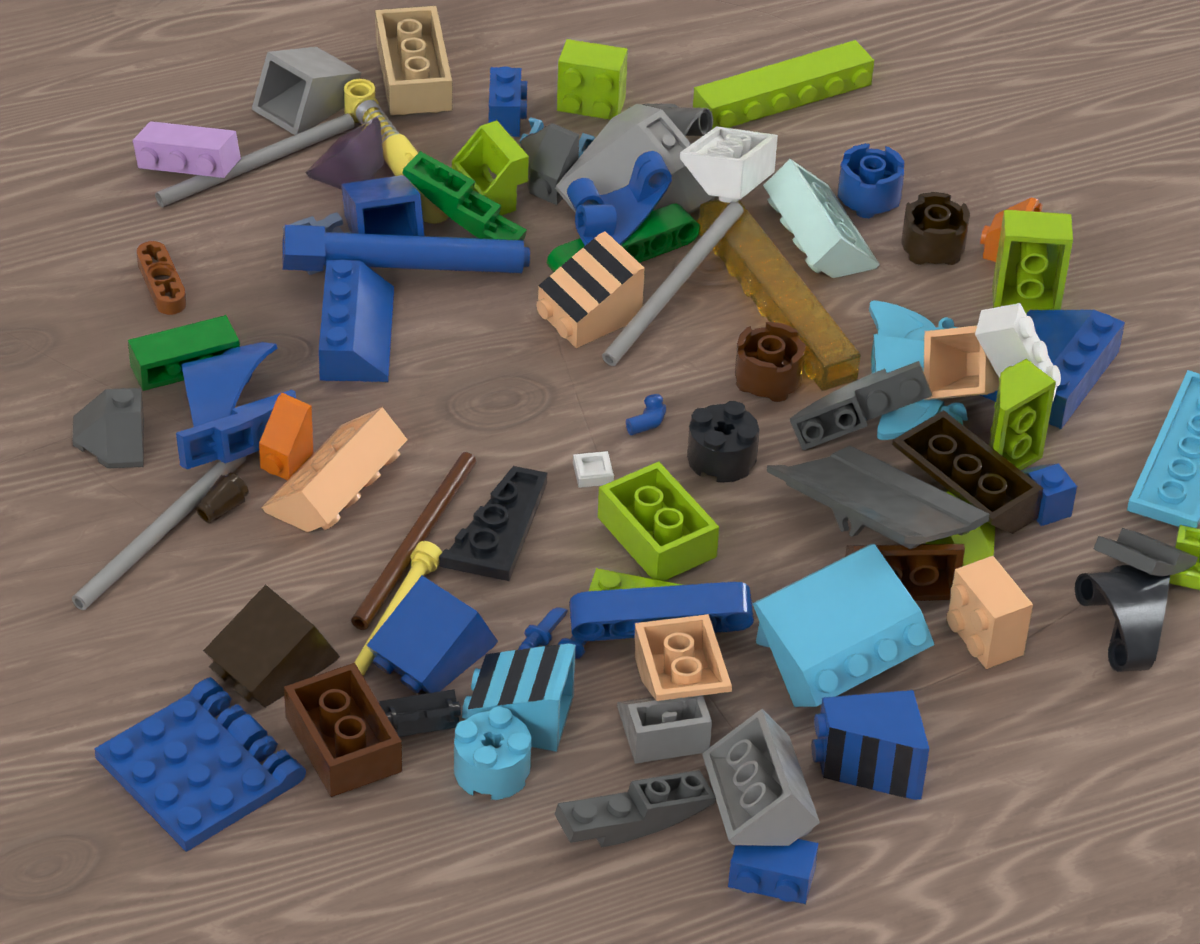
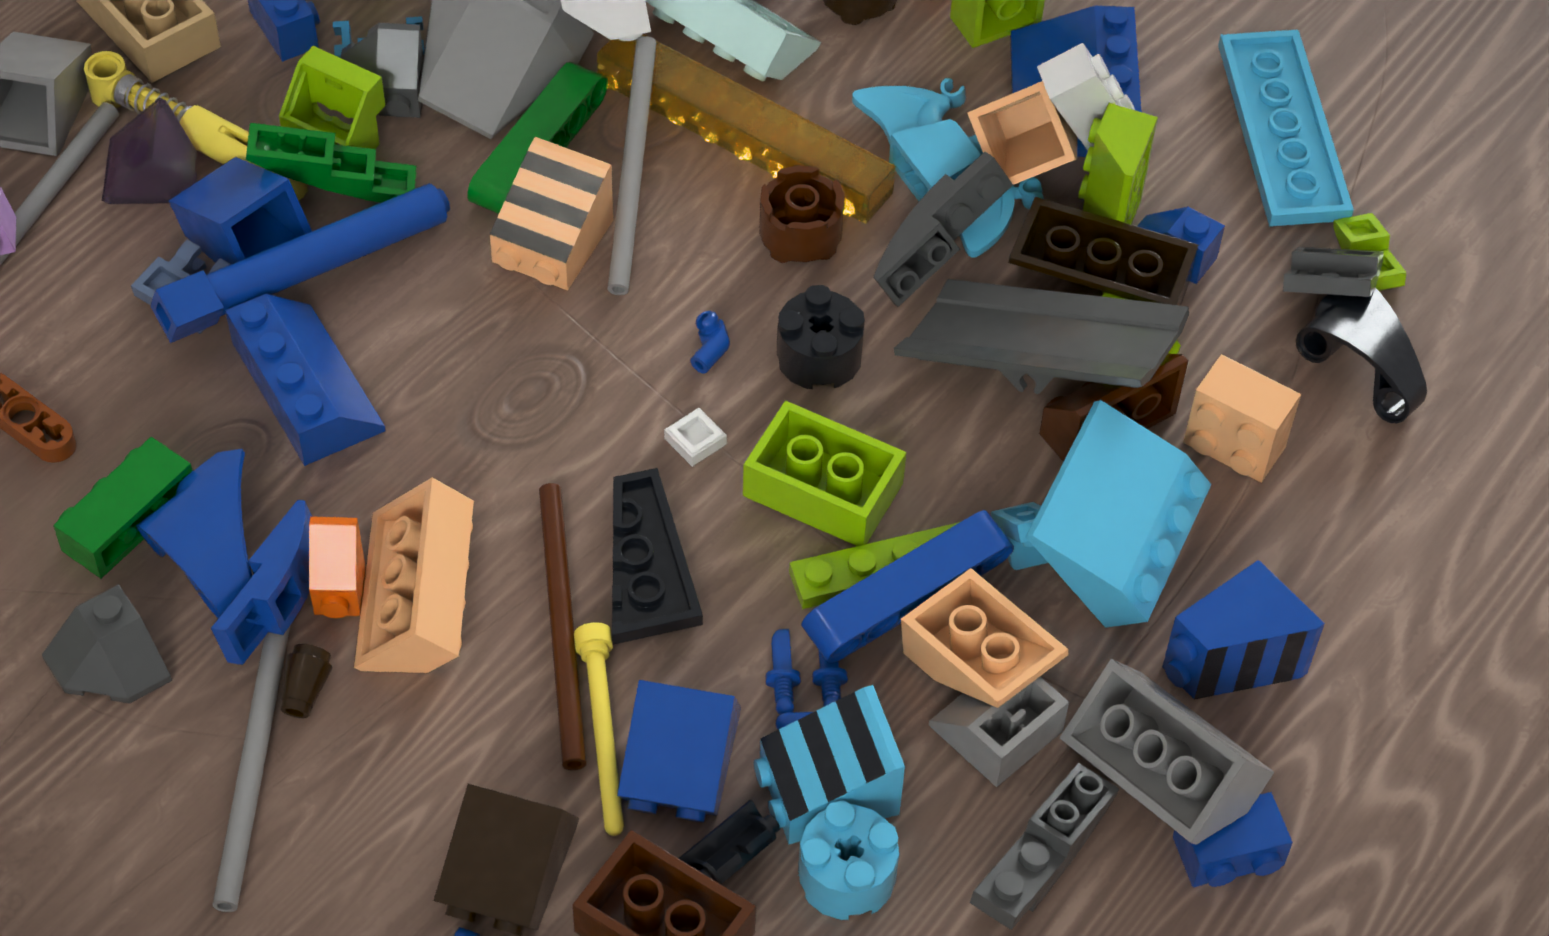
camera: 30 degrees left, 10 degrees up
(624, 209) = (518, 98): blue panel -> none

